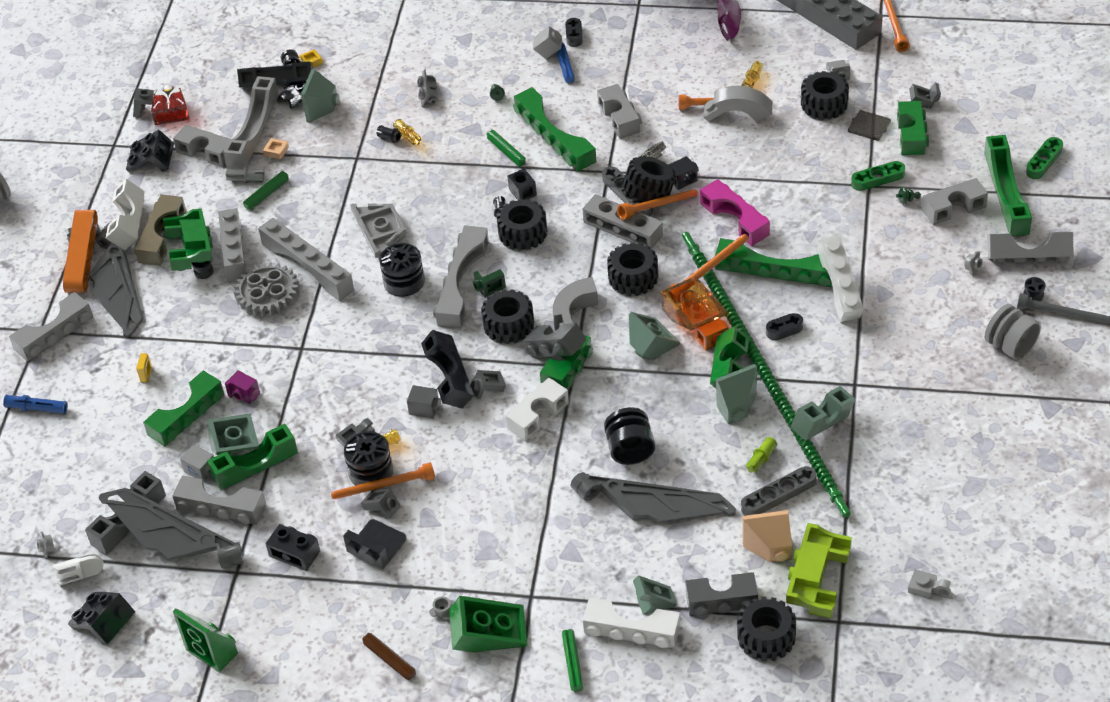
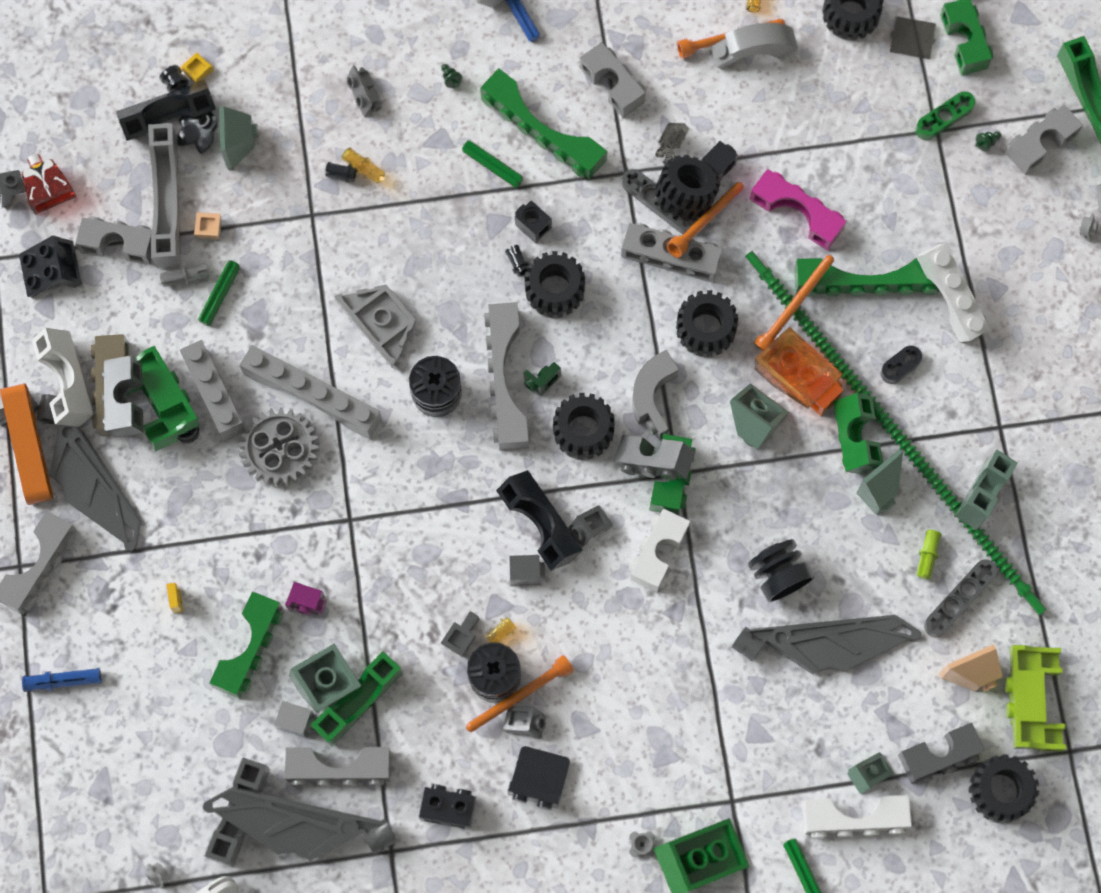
camera: 20 degrees left, 25 degrees up
(155, 237) = (119, 378): none -> arch

